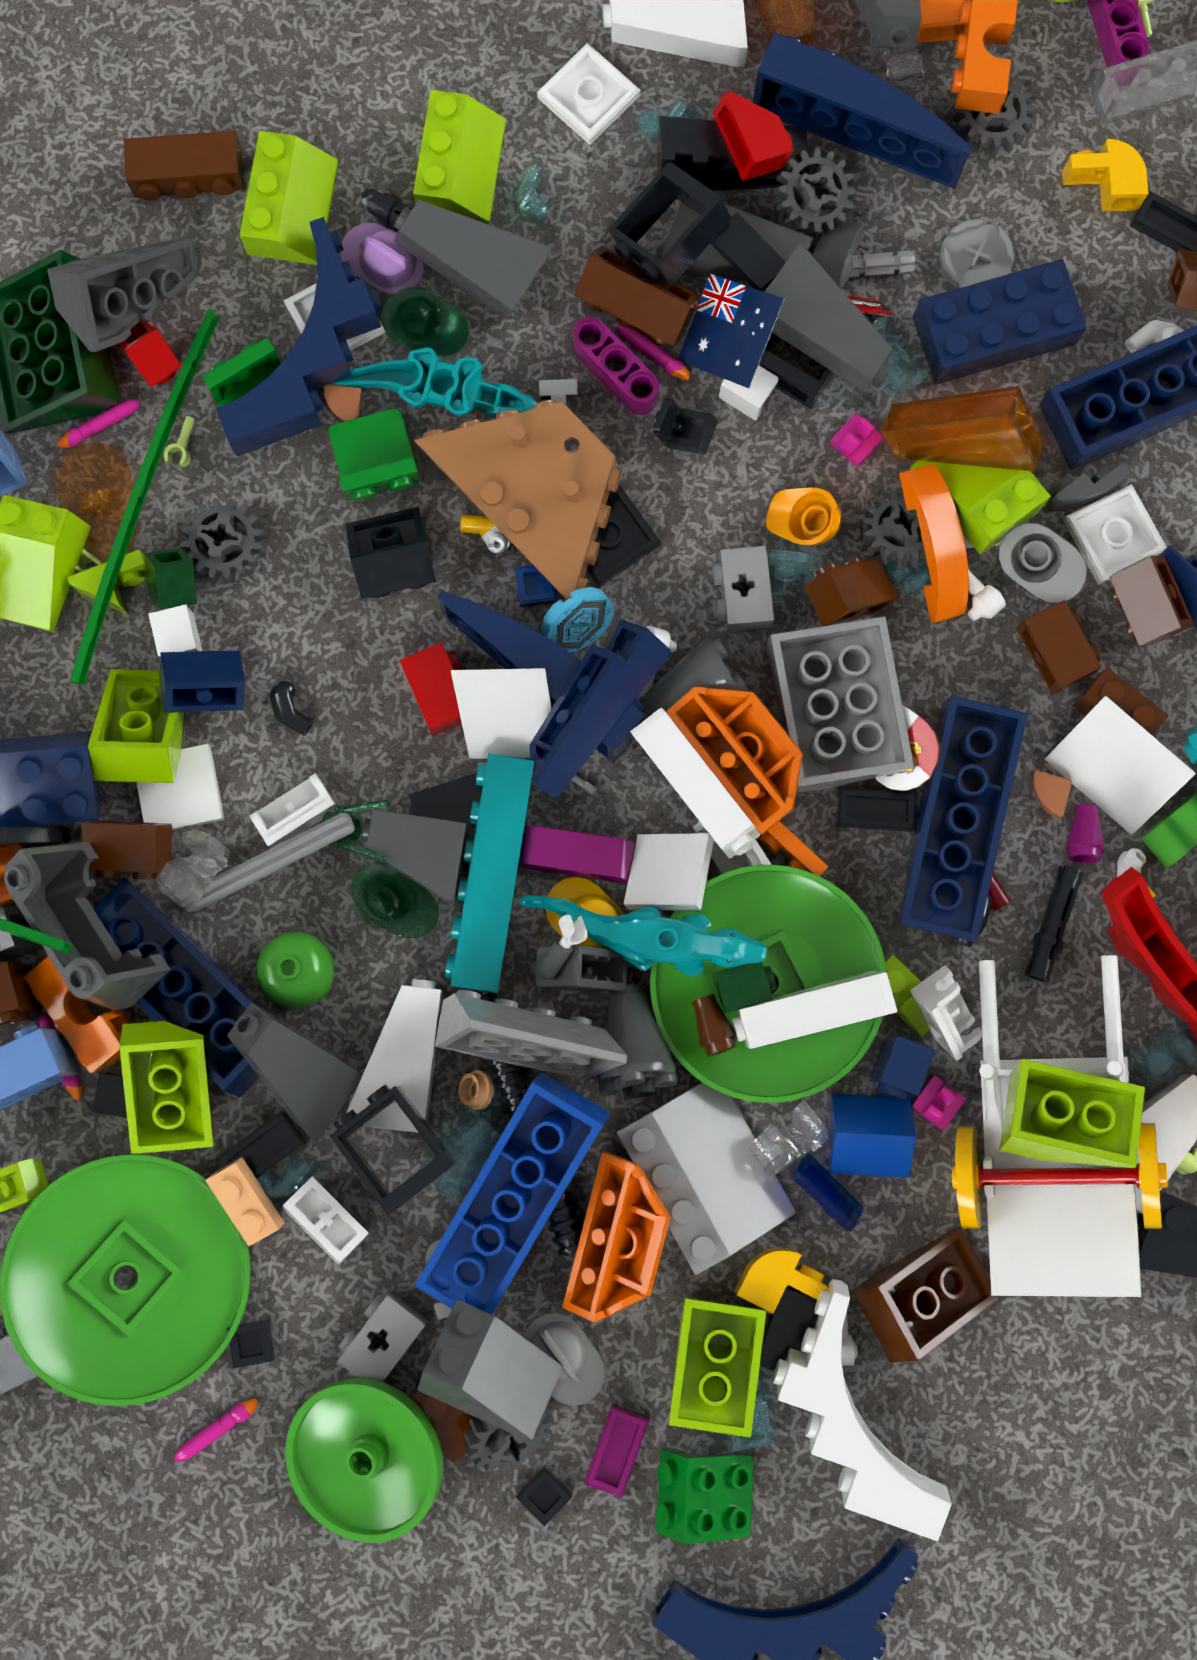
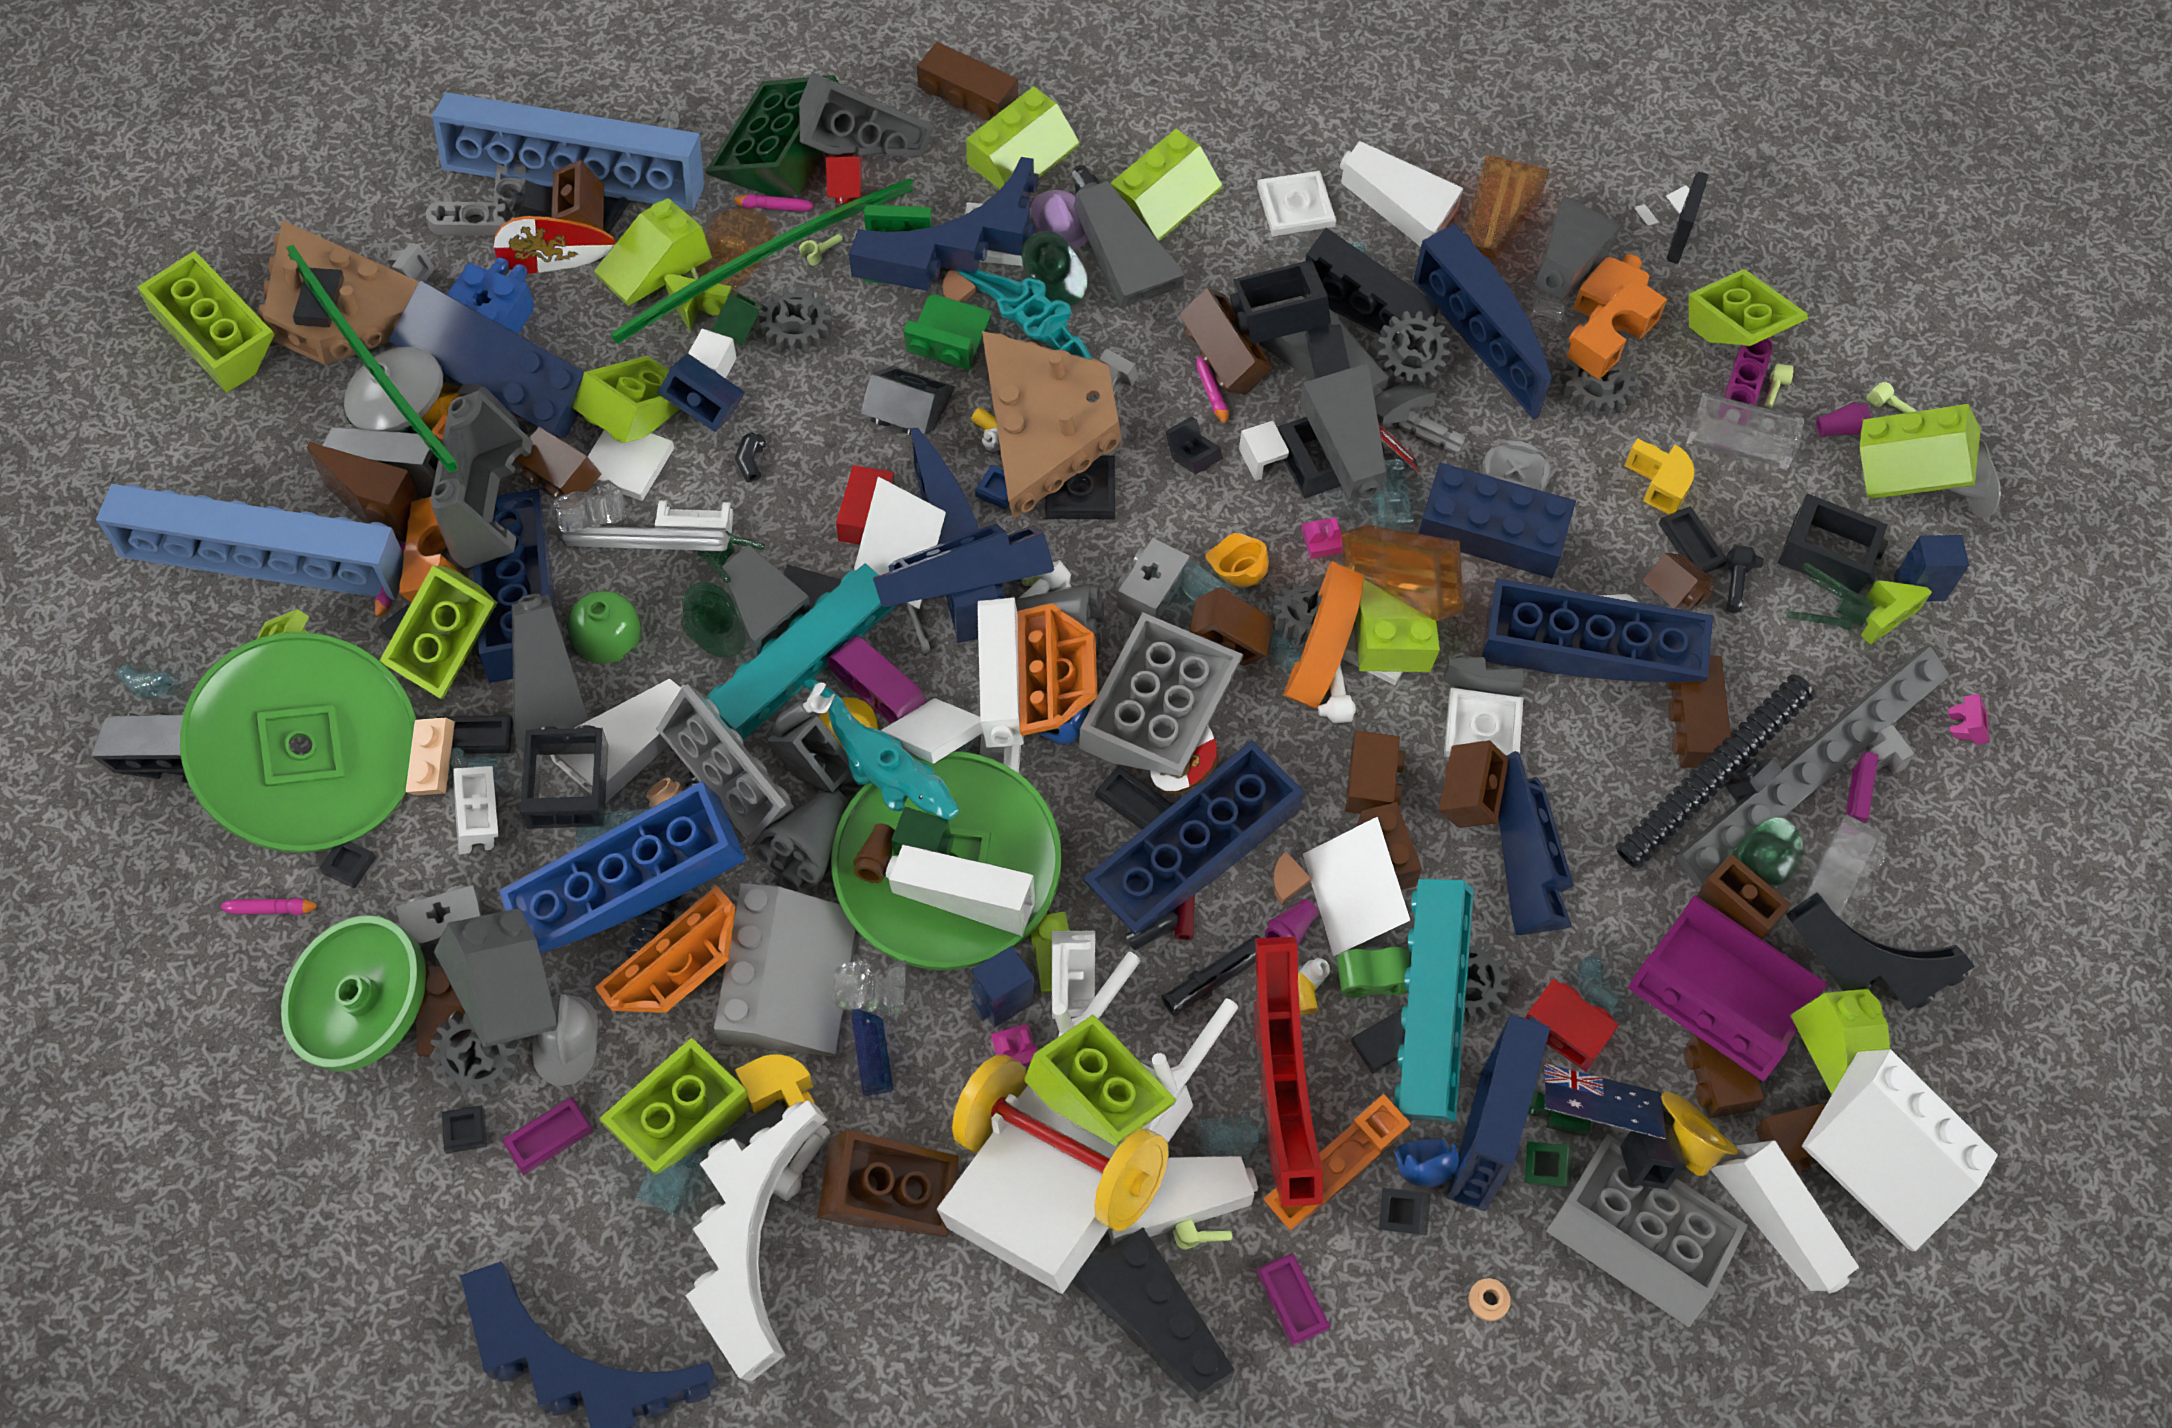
camera: 35 degrees right, 20 degrees down
(527, 197) = (1200, 236): clear light blue arm -> none
(578, 619) = (1008, 509): medium azure tile -> none
(609, 350) = (1173, 377): magenta beam -> none
(704, 1496) = (588, 1216): green bracket -> none
(730, 330) = (1273, 395): dark blue sticker -> none
(752, 136) = (1387, 280): red slope -> none
(798, 853) = (1040, 767): orange plate -> none
(871, 1136) = (938, 1035): blue slope -> none
(1042, 562) = (1402, 699): light grey piece -> none

